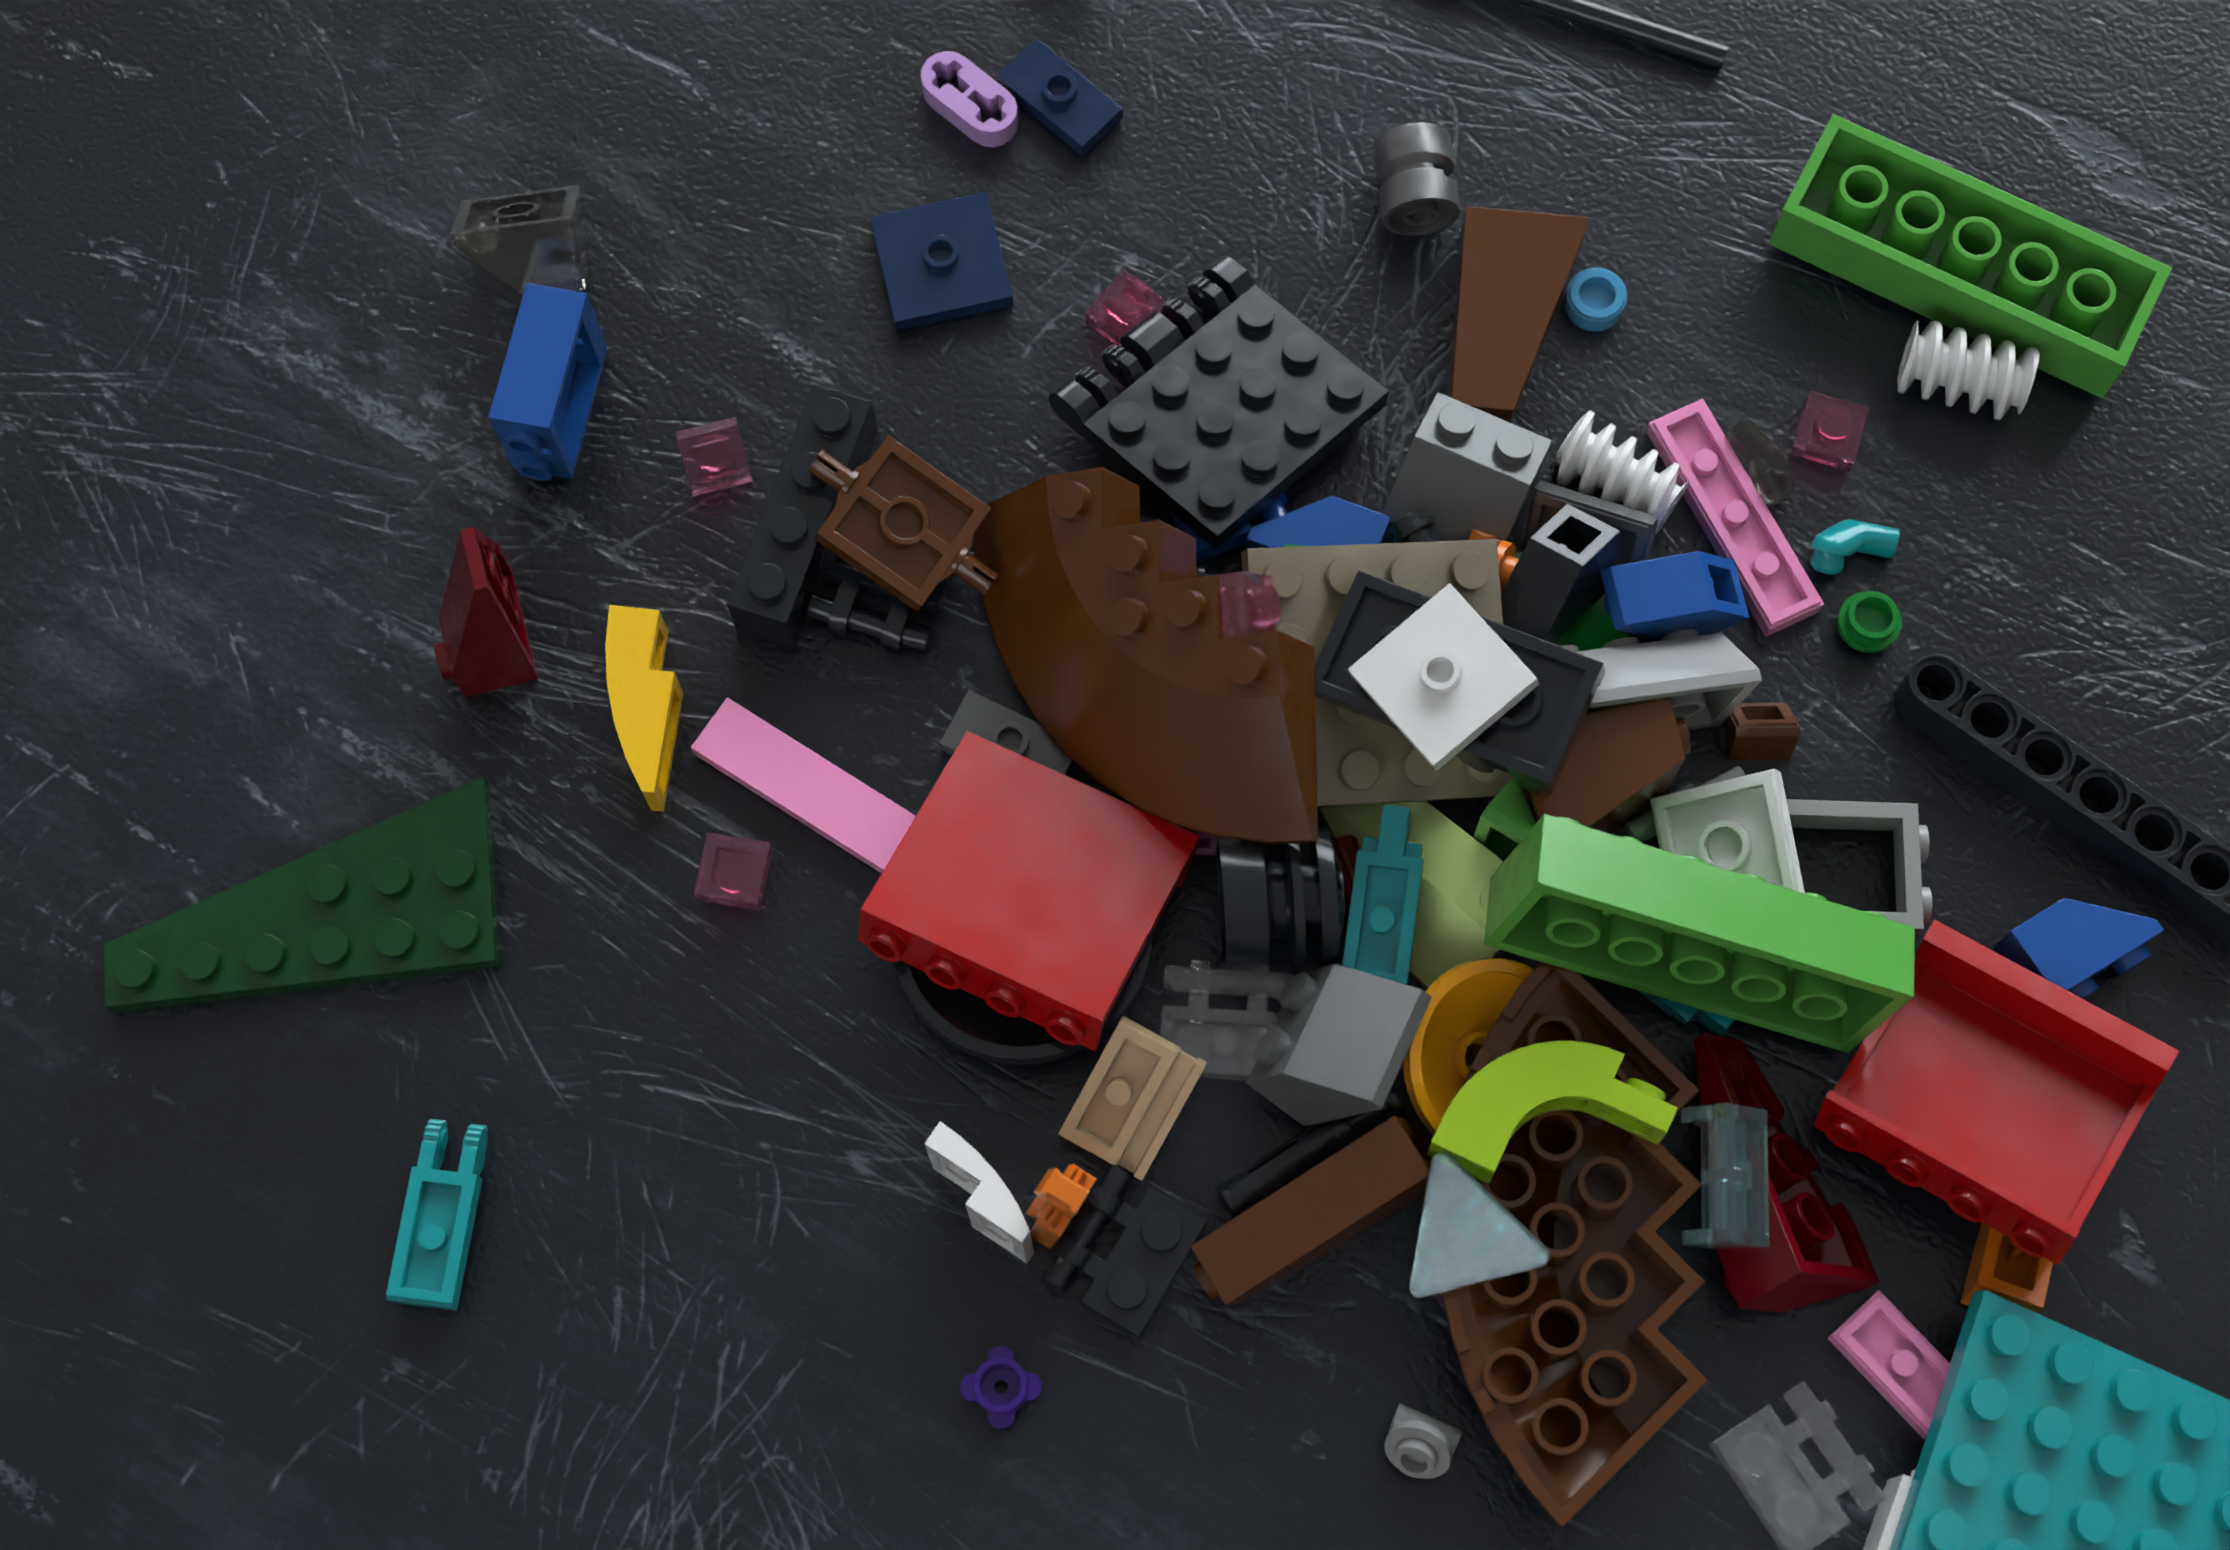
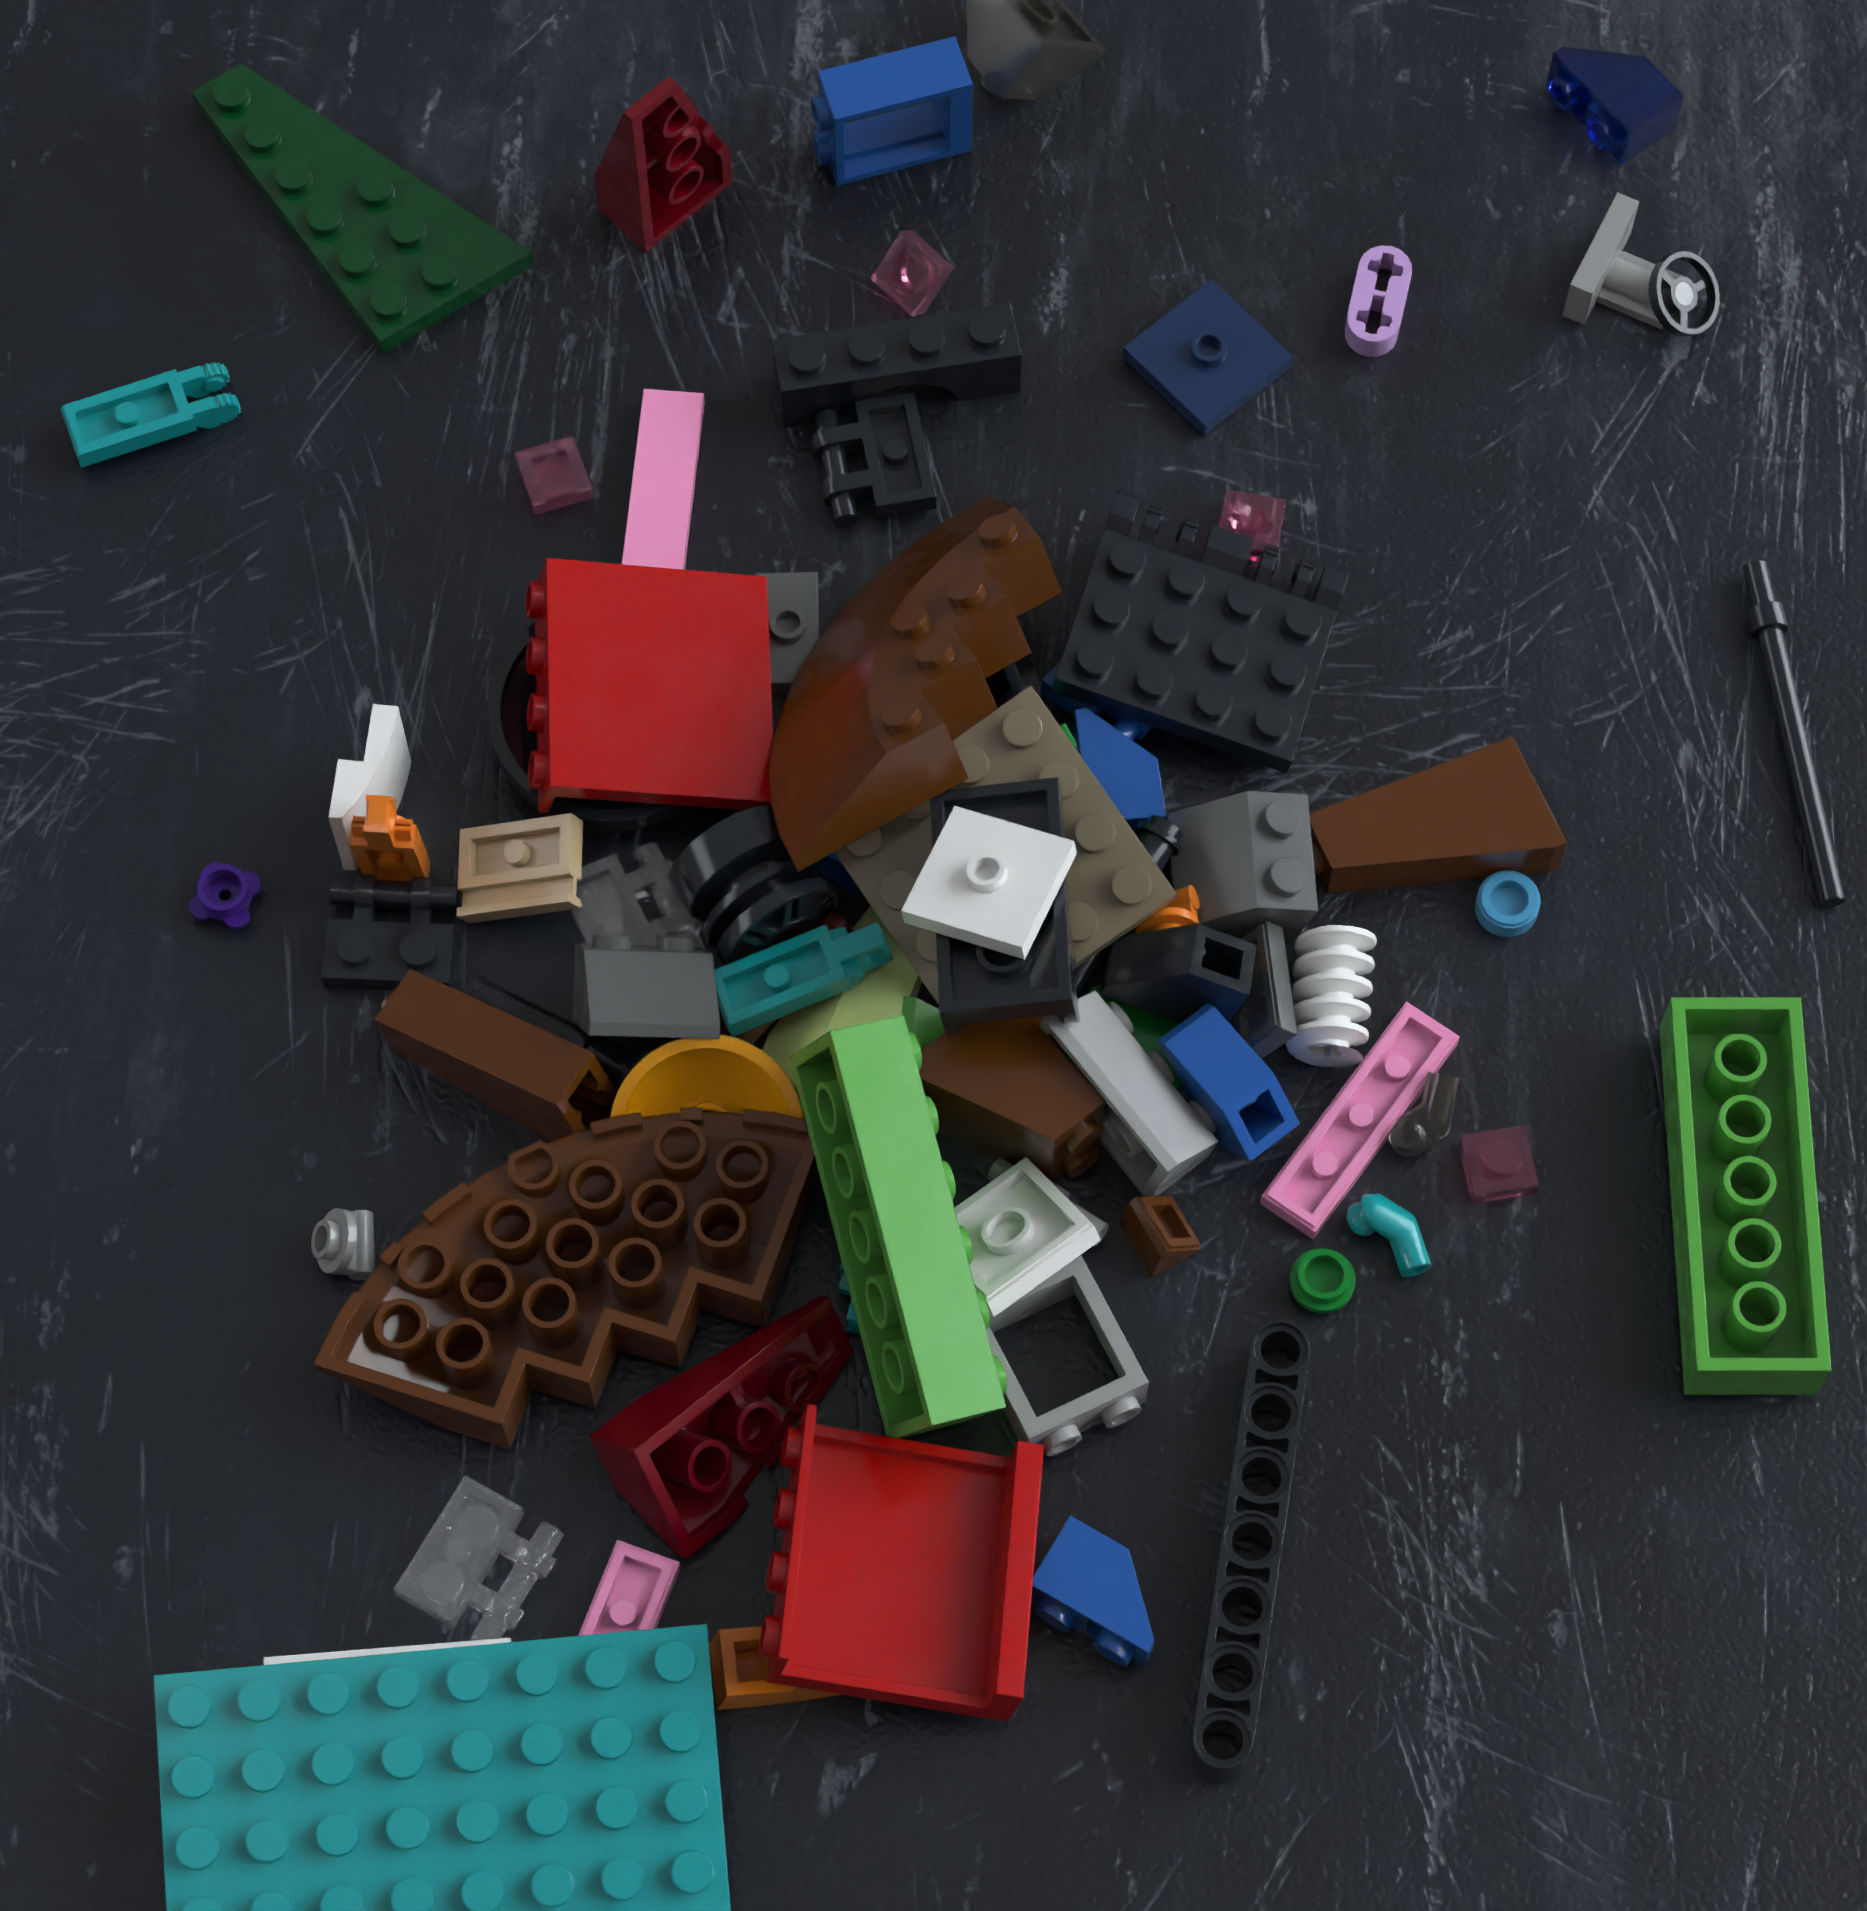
camera: 60 degrees right, 5 degrees down
(643, 697) = (660, 331): yellow slope -> none
(902, 523) = (923, 433): reddish brown plate -> none
(1060, 97) = (1427, 371): dark blue plate -> none
(1248, 604) = (970, 705): clear pink plate -> none
(1414, 179) = (1529, 685): flat silver wheel -> none
(1467, 1234) = (520, 1159): clear light blue piece -> none
(1542, 1081) = (660, 1135): lime arch -> none
(1731, 1176) = (695, 1362): clear light blue hinge -> none
(1967, 369) = (1620, 1245): white piece -> none

